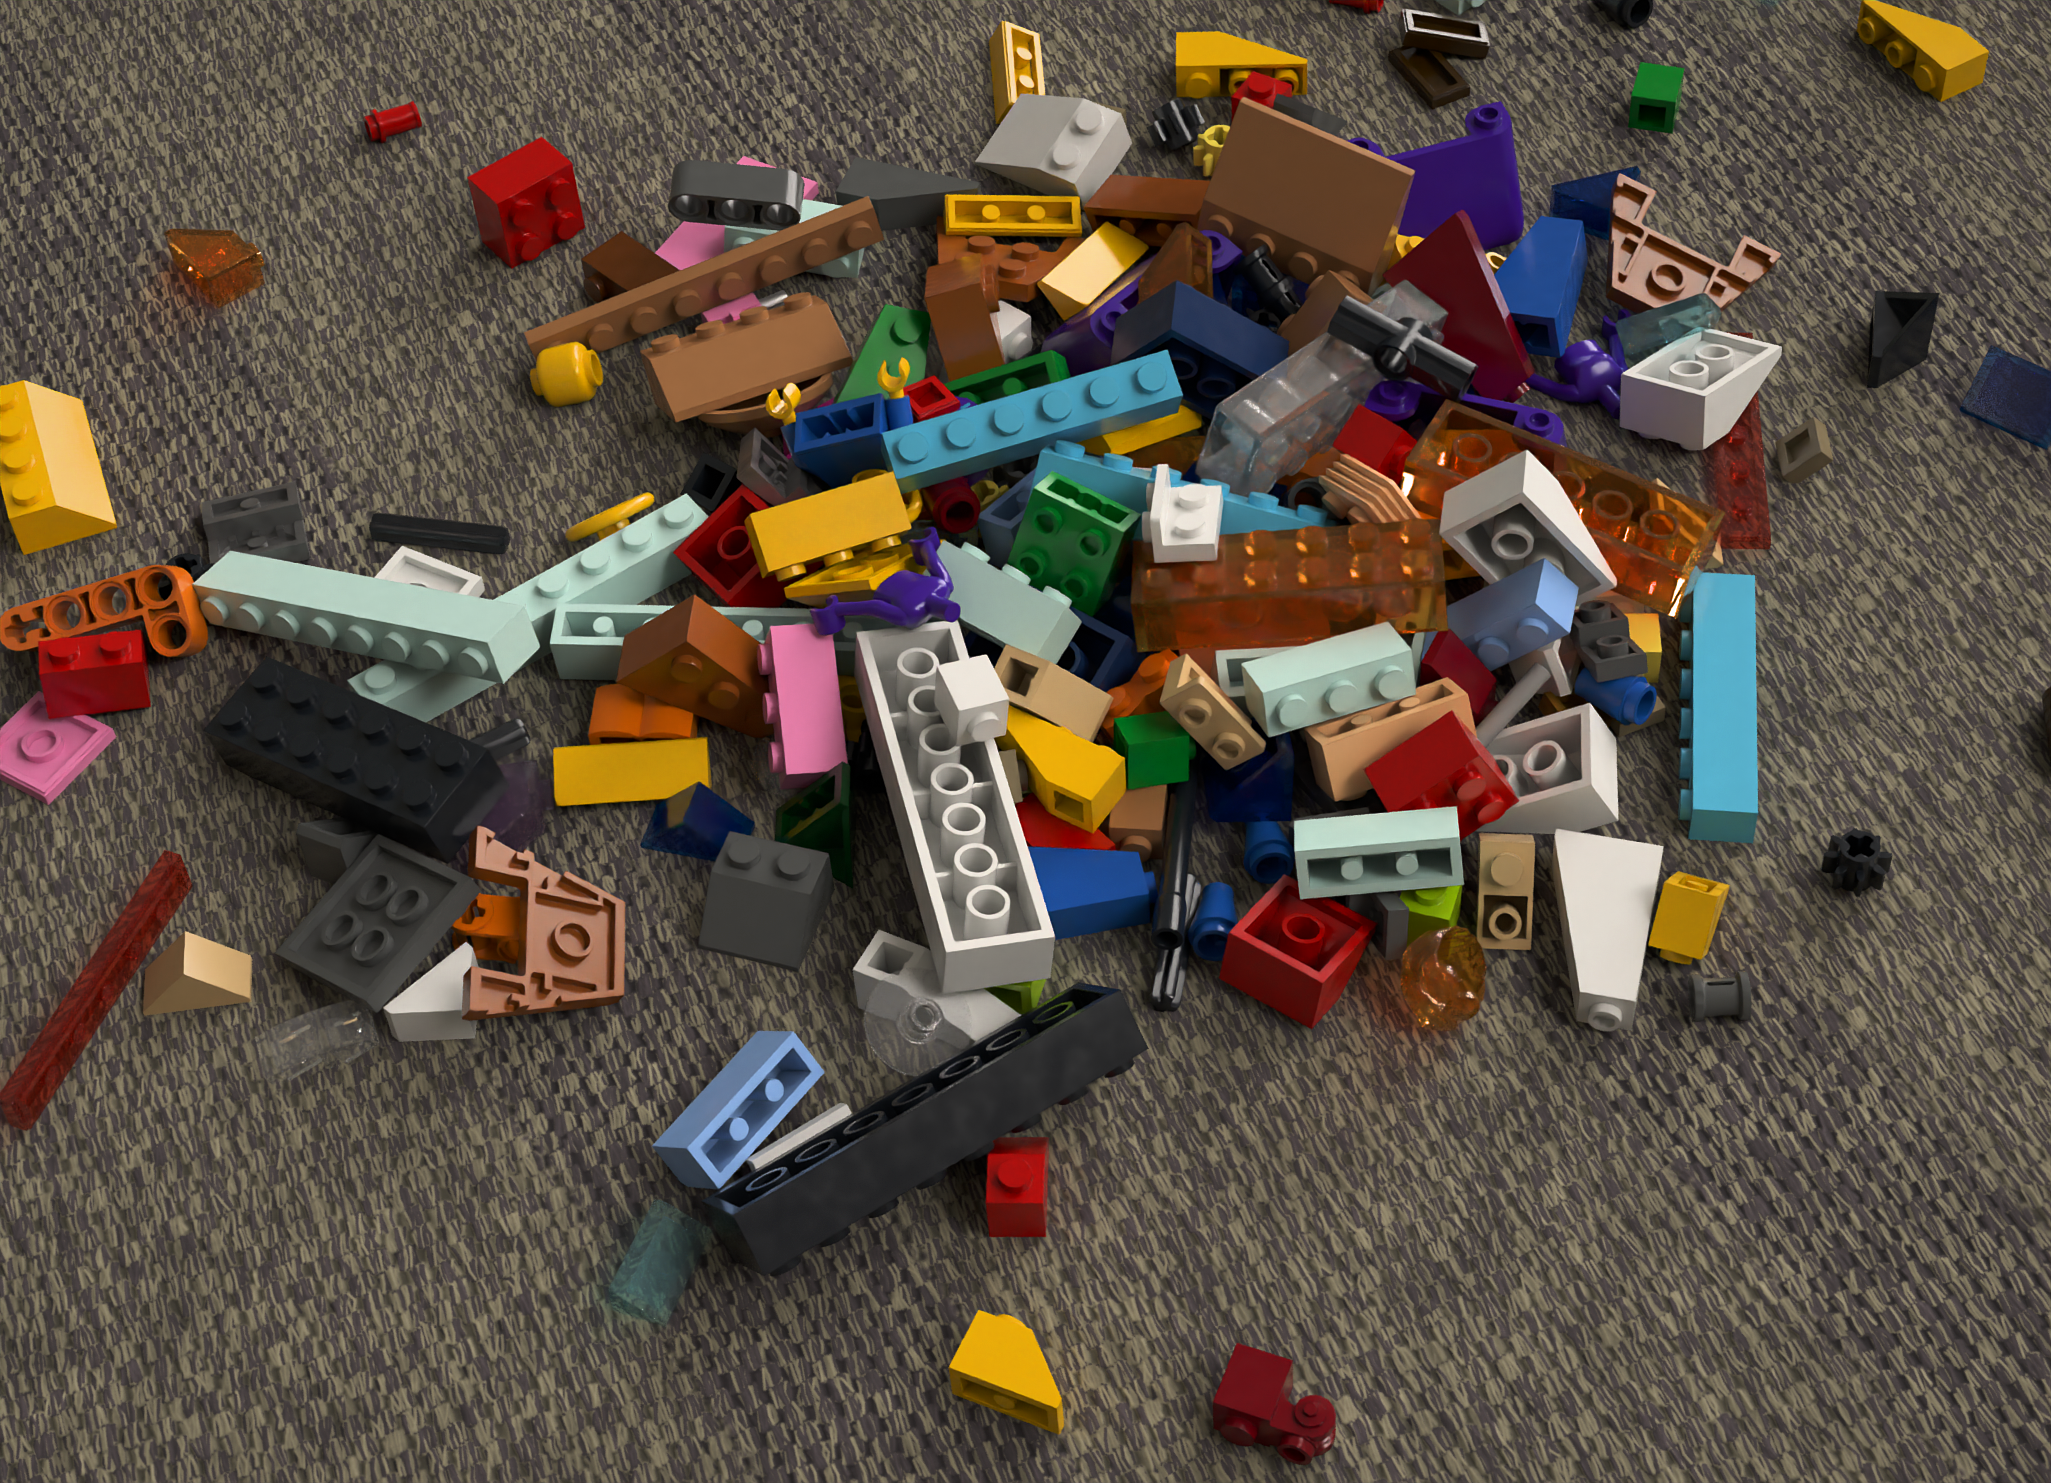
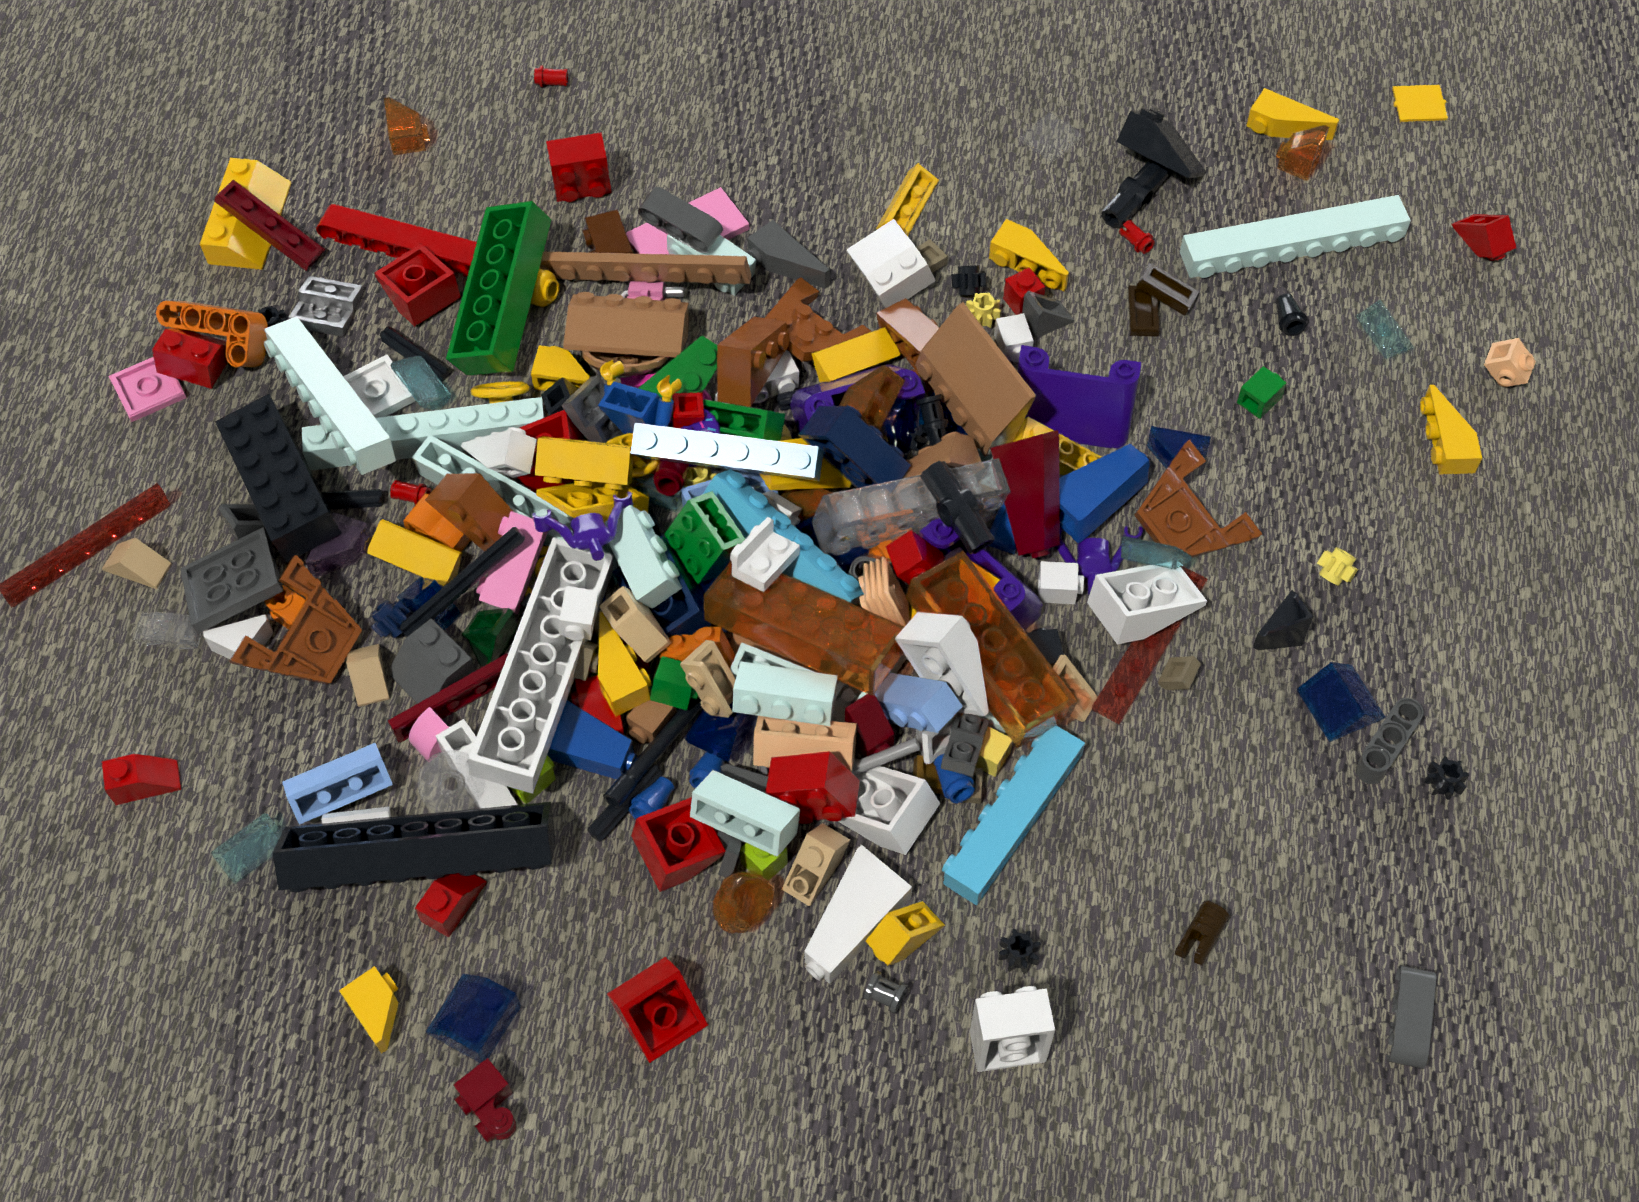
camera: 25 degrees right, 10 degrees up
(100, 454) = (269, 225): none -> dark red tile
(331, 397) = (394, 237): none -> red beam
(389, 438) = (418, 284): none -> red slope
(414, 1251) = (139, 777): none -> red slope
(482, 557) = (421, 382): none -> clear light blue slope
(525, 387) = (499, 289): none -> green brick
(564, 703) = (408, 491): none -> red pin
(658, 869) = (389, 617): none -> dark blue gear
(670, 455) = (553, 364): none -> yellow slope
(675, 958) = (367, 675): none -> tan slope
(699, 564) = (504, 451): none -> white slope
(751, 757) = (464, 580): none -> black axle
(828, 987) = (424, 733): none -> bright pink brick
(831, 922) = (450, 698): none -> dark red tile
(1012, 215) = (837, 298): yellow slope -> none
(1165, 1309) = (475, 1016): none -> clear blue slope
(1424, 1168) = (657, 1009): none -> red slope
(1579, 410) = (1059, 582): none -> white brick
(1905, 245) = (1337, 566): none -> light yellow gear
(1937, 939) = (1011, 1029): none -> white brick

